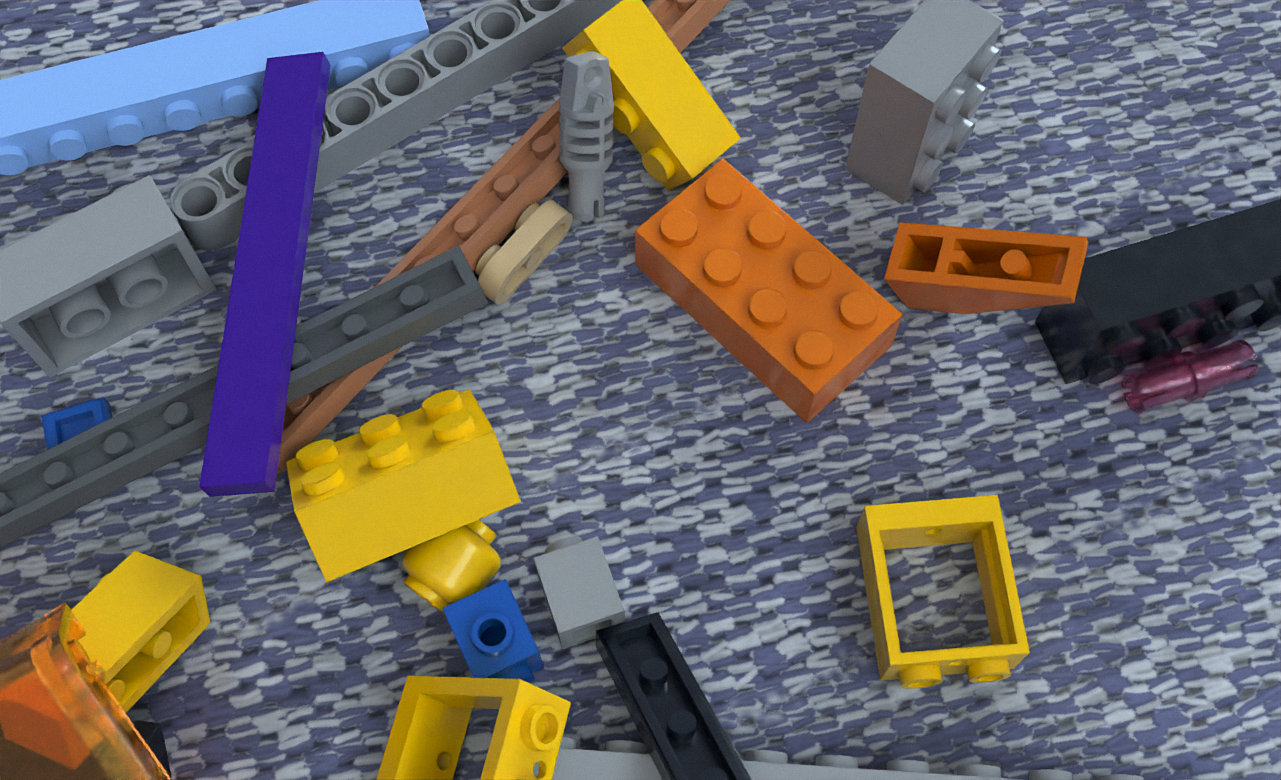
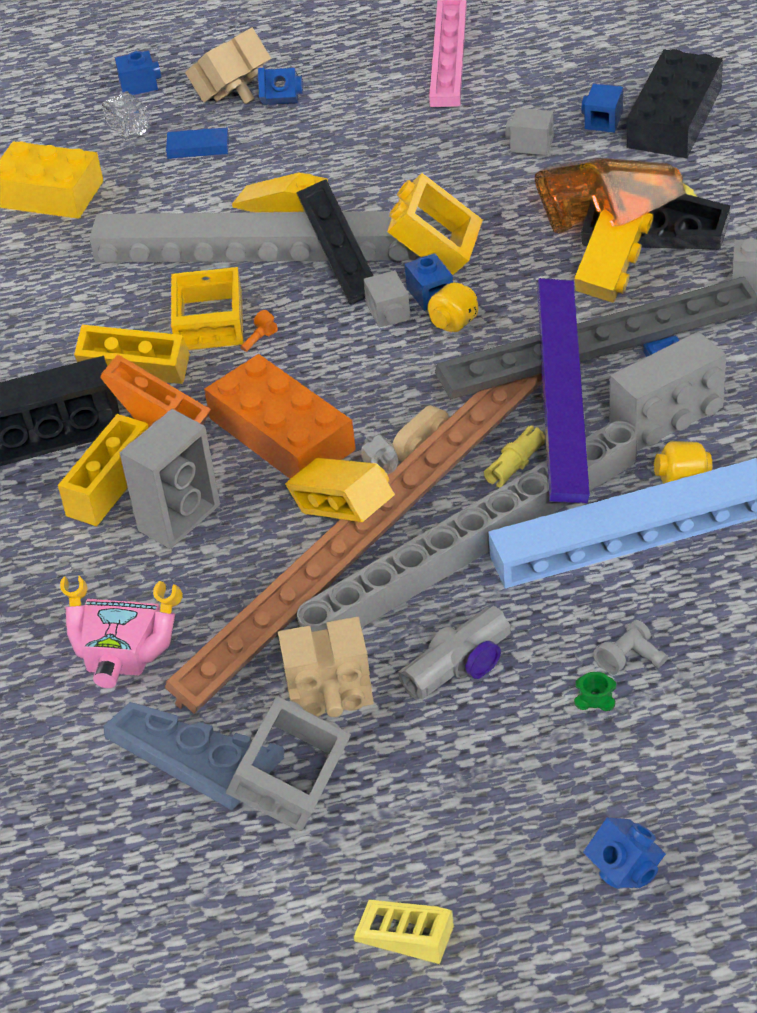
camera: 175 degrees left, 20 degrees down
(113, 160) = (681, 460): none -> yellow head
(376, 217) = (515, 456): none -> light yellow pin
(399, 482) = (477, 312): yellow brick -> none
(817, 559) = (265, 326): none -> orange hand
(1046, 163) = (98, 475): none -> yellow brick
(1061, 443) = (155, 352): none -> yellow brick

